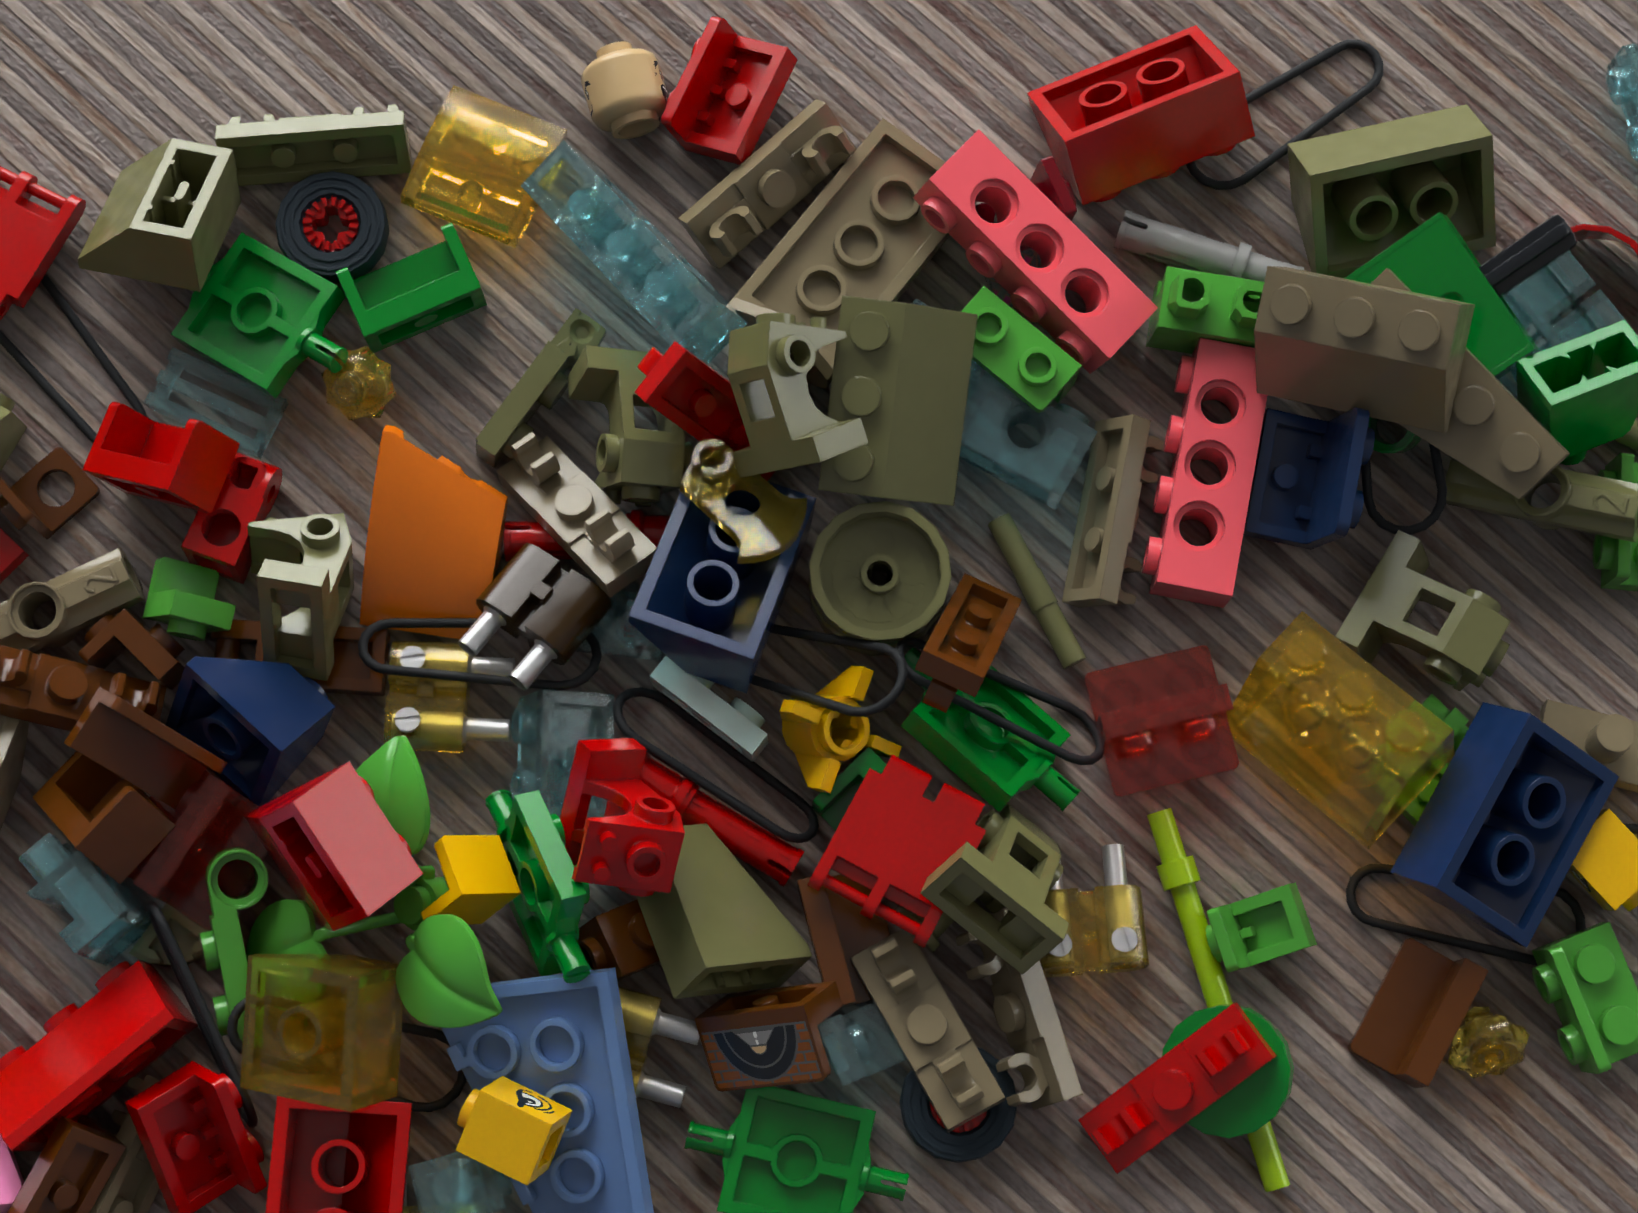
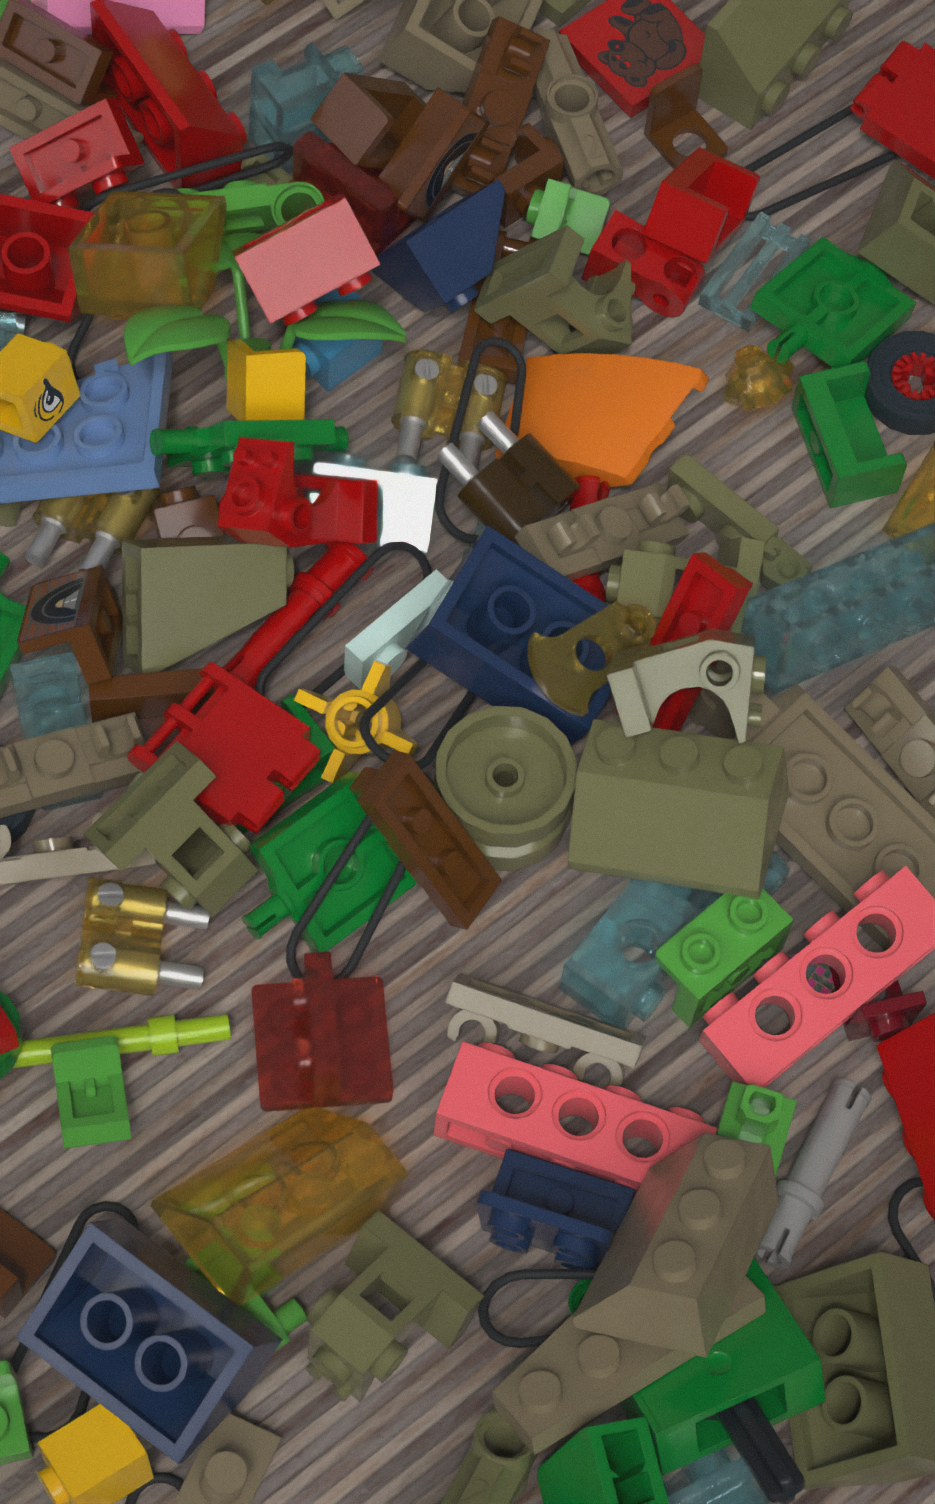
camera: 95 degrees right, 15 degrees down
(1036, 591) = (475, 951): olive piece -> none

